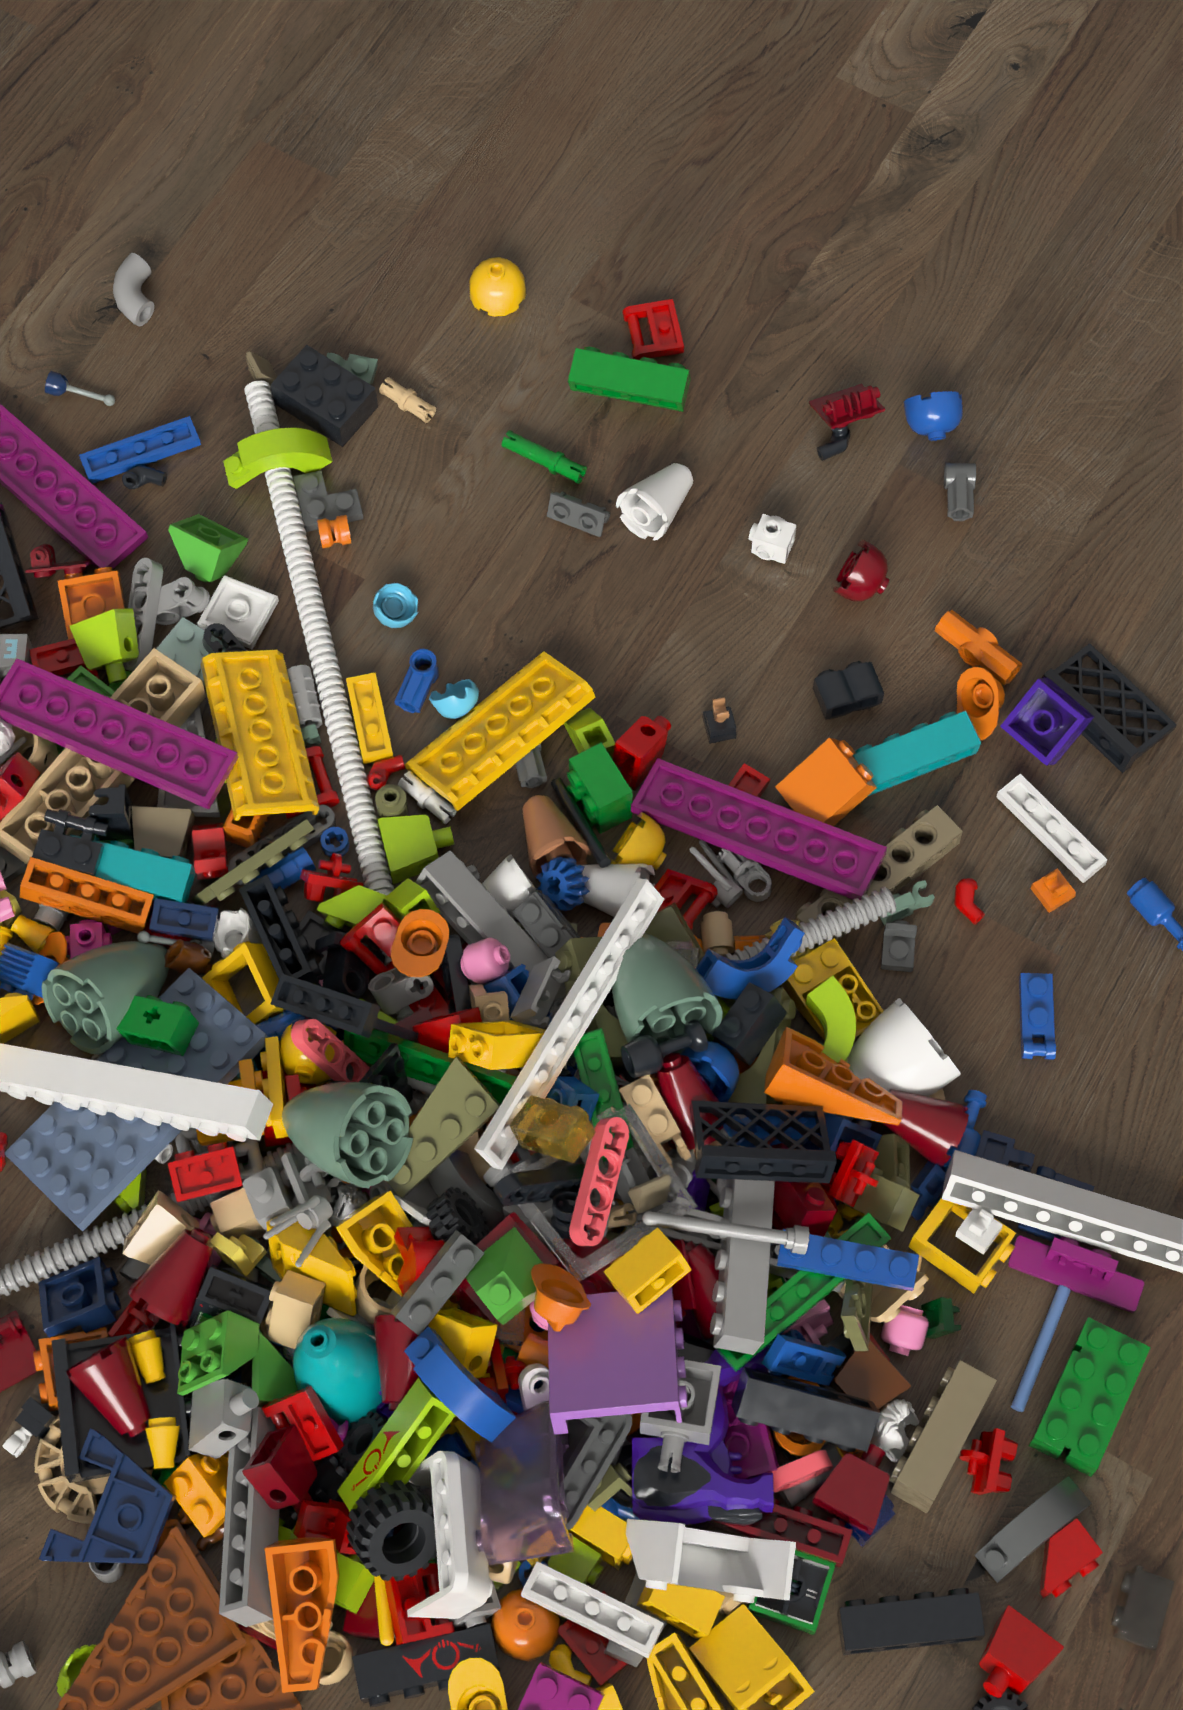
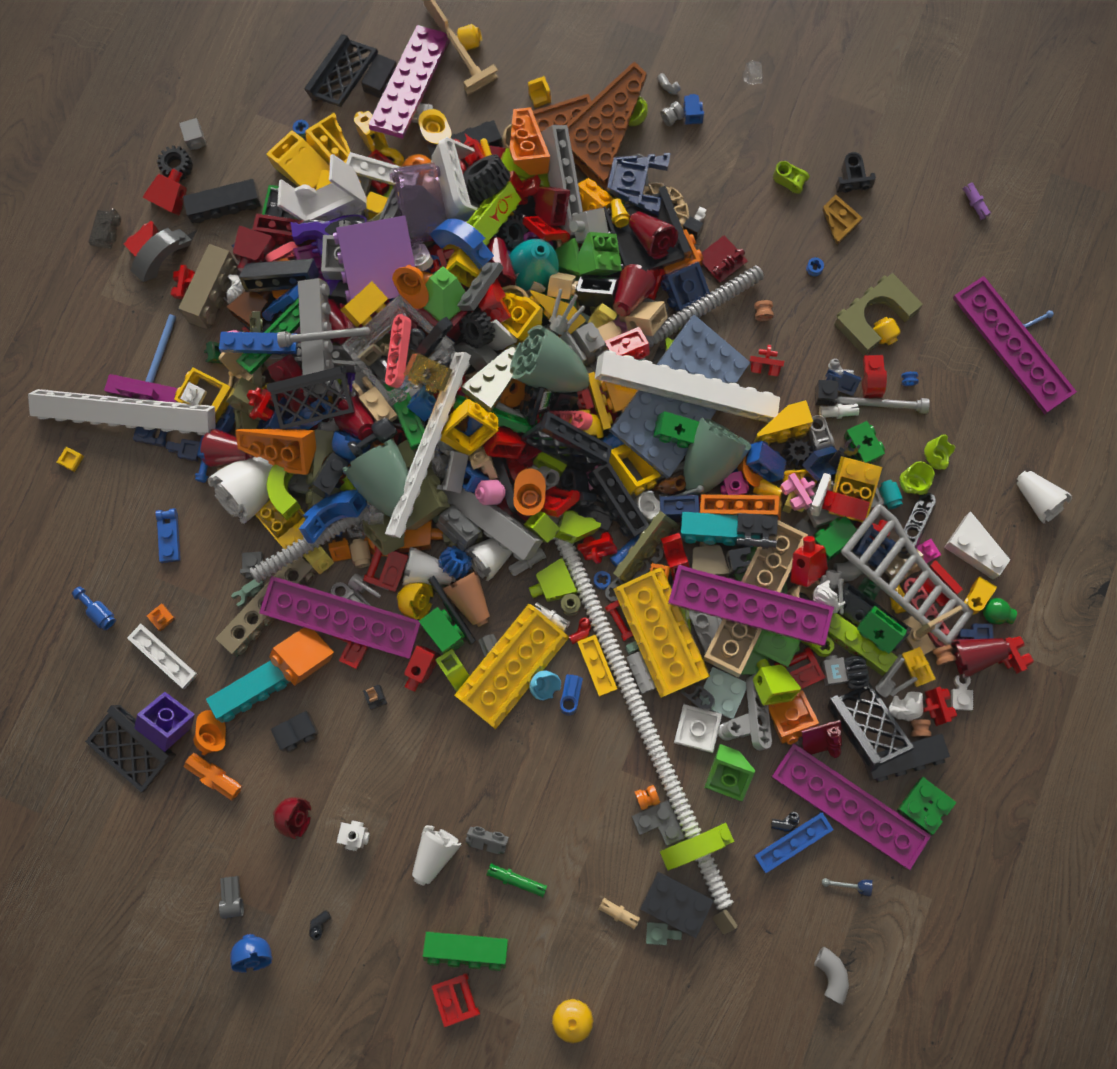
camera: 175 degrees right, 10 degrees up
(148, 1355) = (637, 253): yellow cone -> none
(395, 605) = (594, 745): medium azure hair -> none
(848, 405) = (312, 952): dark red hinge -> none
(965, 900) = (213, 602): red arm -> none
(1090, 1396) = (132, 321): green piece -> none

